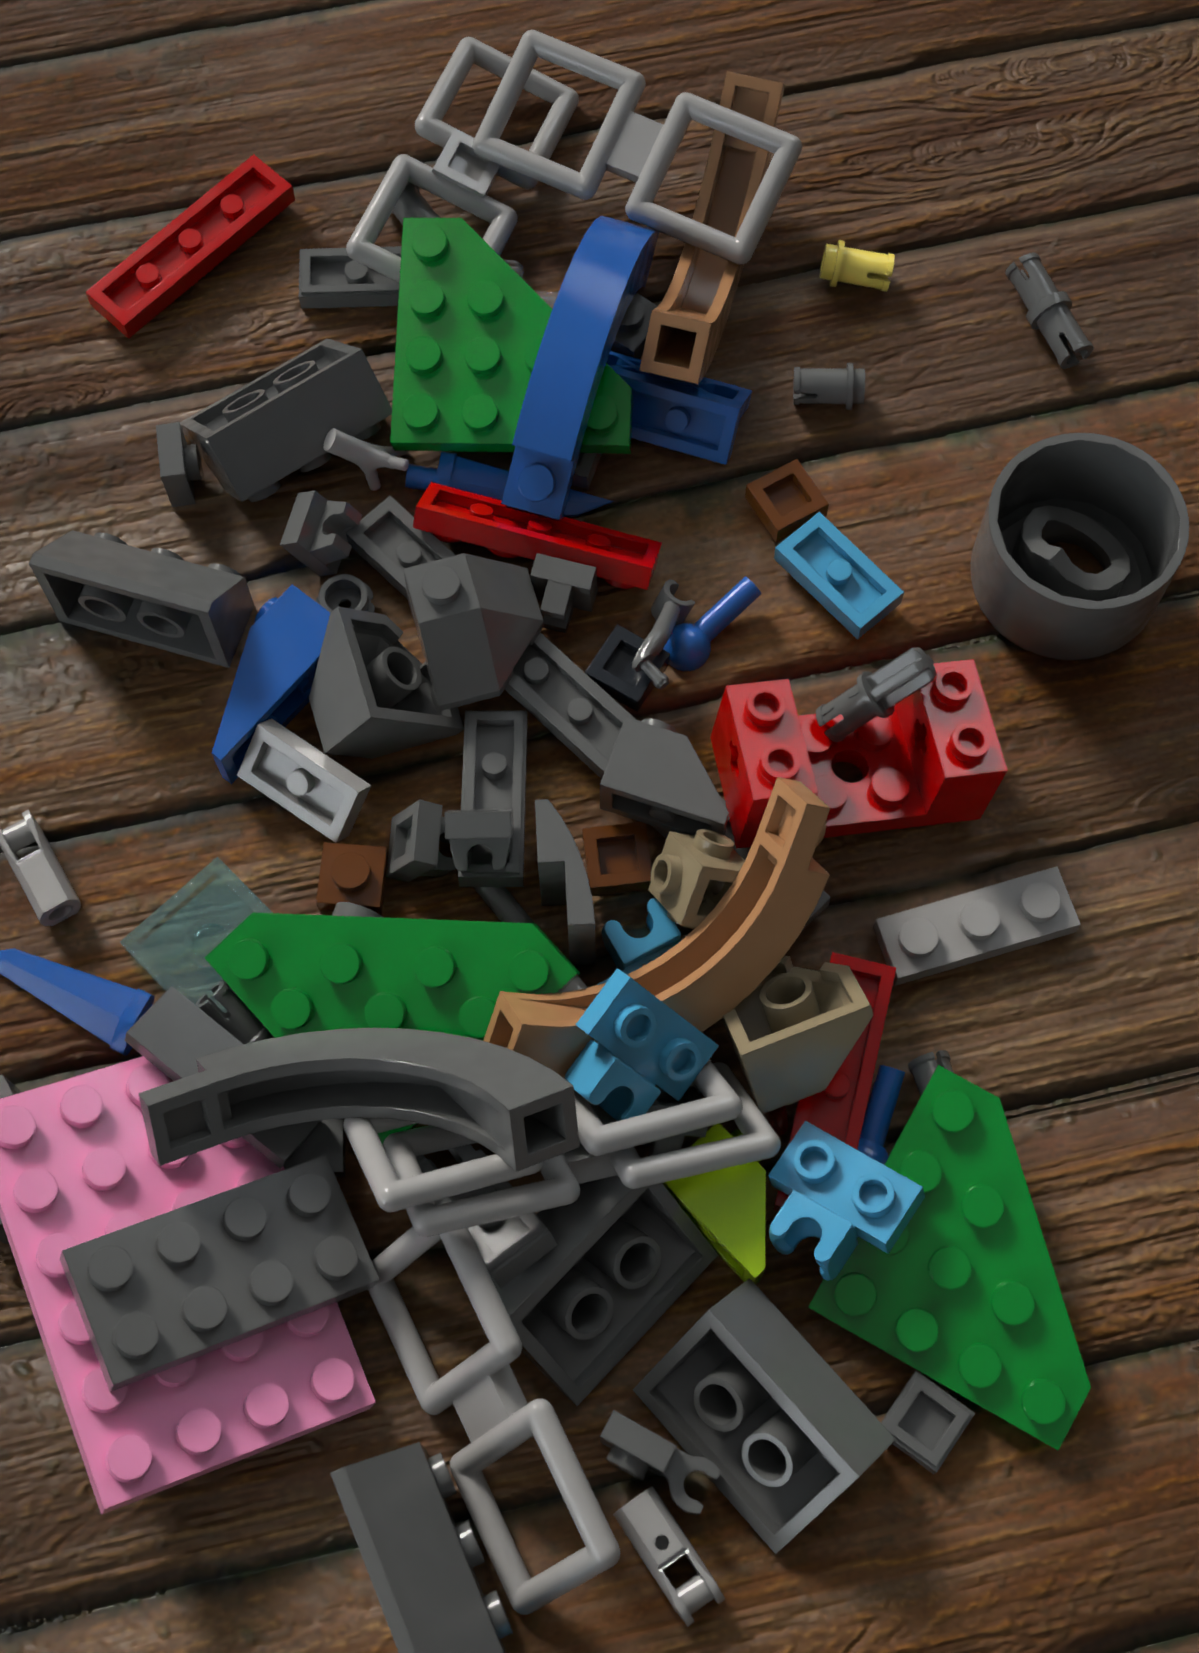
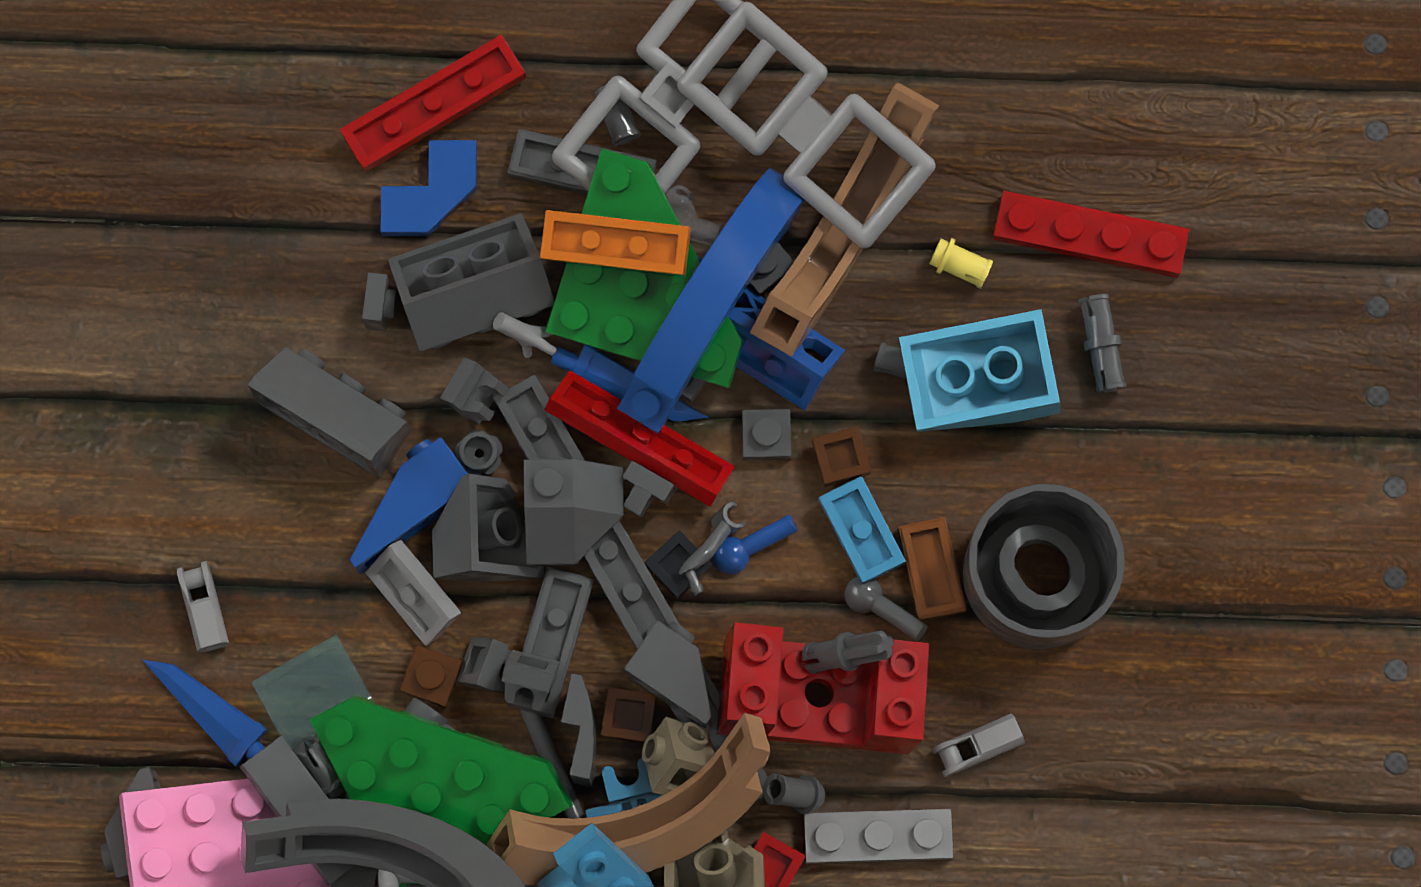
camera: 15 degrees right, 10 degrees up
(207, 359) = (423, 208): none -> blue tile
(448, 304) = (615, 242): none -> orange plate
(688, 502) = (766, 434): none -> dark grey plate
(864, 894) = (801, 793): none -> dark grey pin
(869, 651) = (869, 598): none -> dark grey bar
(930, 360) = (981, 373): none -> medium azure slope
(937, 602) = (931, 569): none -> dark orange tile
(993, 208) = (1091, 234): none -> red plate
(1067, 780) = (985, 741): none -> light grey bar

